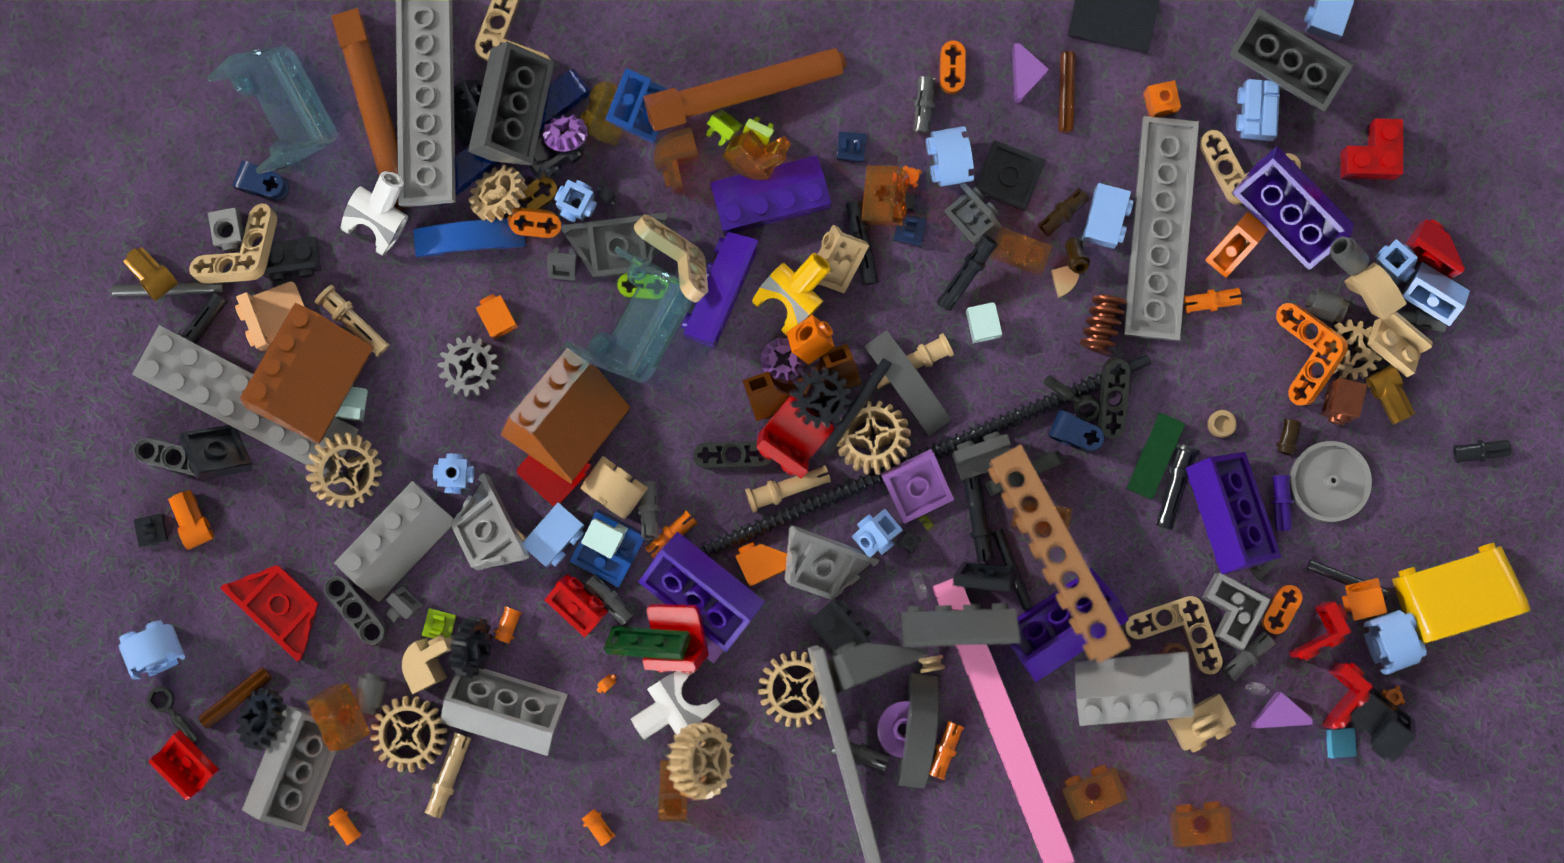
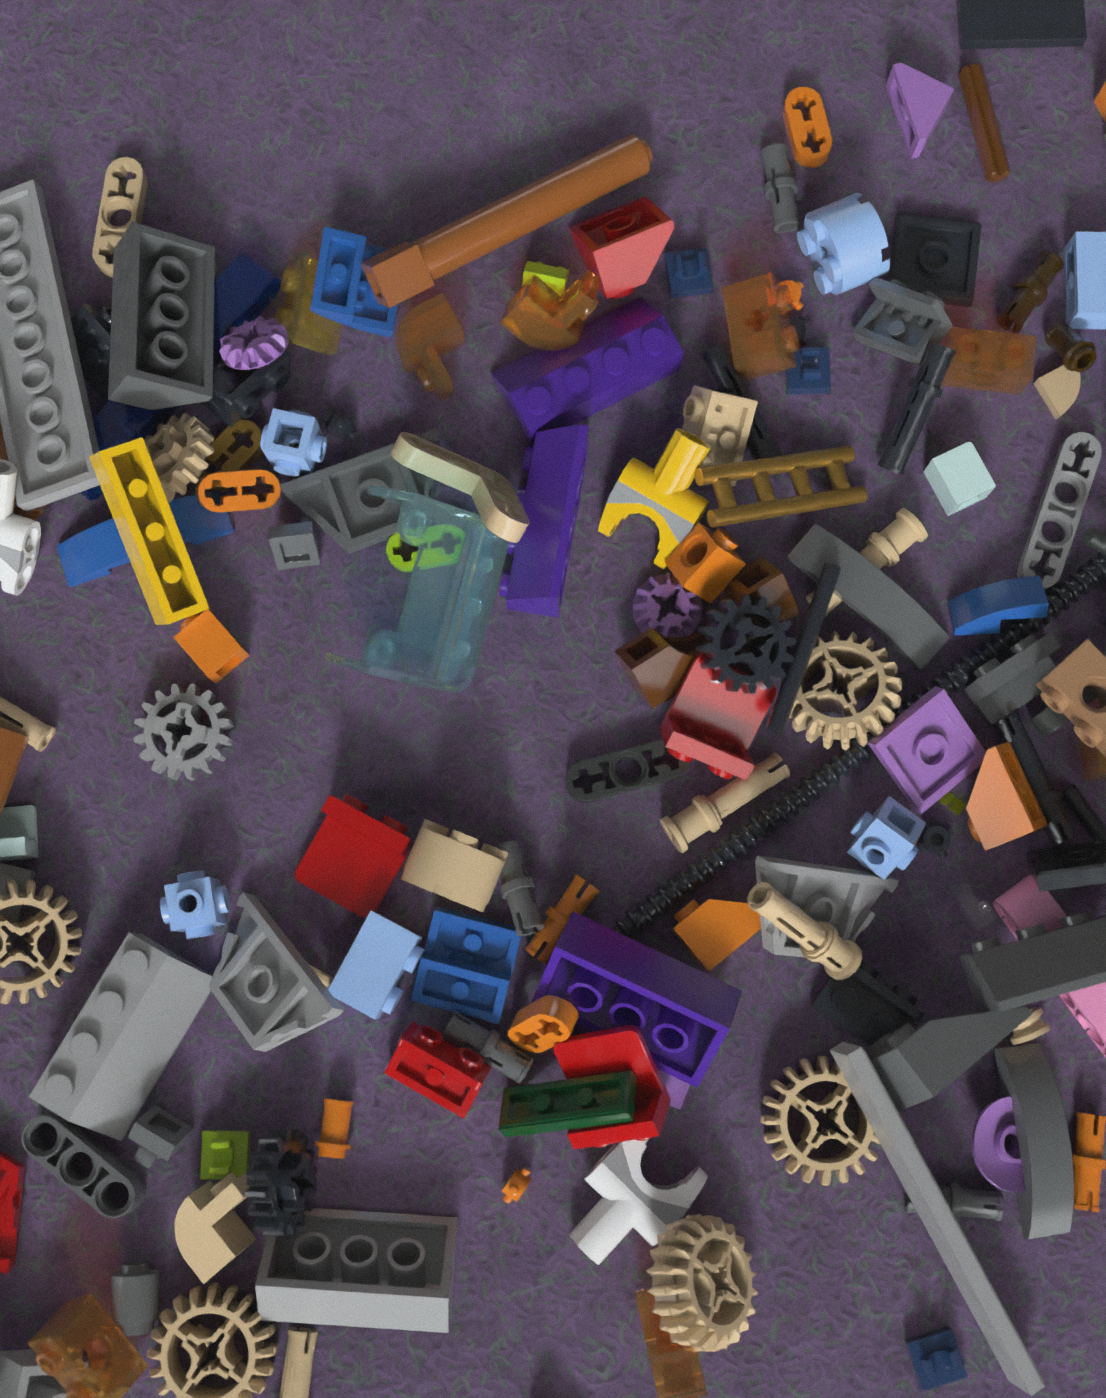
camera: 10 degrees left, 5 degrees down
(475, 241) = (149, 531): none -> yellow brick
(566, 416) = (350, 770): dark orange slope -> none
(604, 537) = (457, 949): light aqua panel -> none
(644, 593) = (543, 1024): none -> orange beam
(723, 124) = (492, 283): lime tile -> none
(813, 119) = (623, 245): none -> red slope
(816, 582) = (817, 939): none -> tan pin
(826, 839) = (936, 1358): none -> dark blue tile
(858, 312) = (767, 504): none -> pearl gold bar
(953, 526) = (1002, 800): none -> orange slope
(988, 406) = (984, 607): none -> blue slope
(1039, 356) = (1062, 513): none -> light grey beam

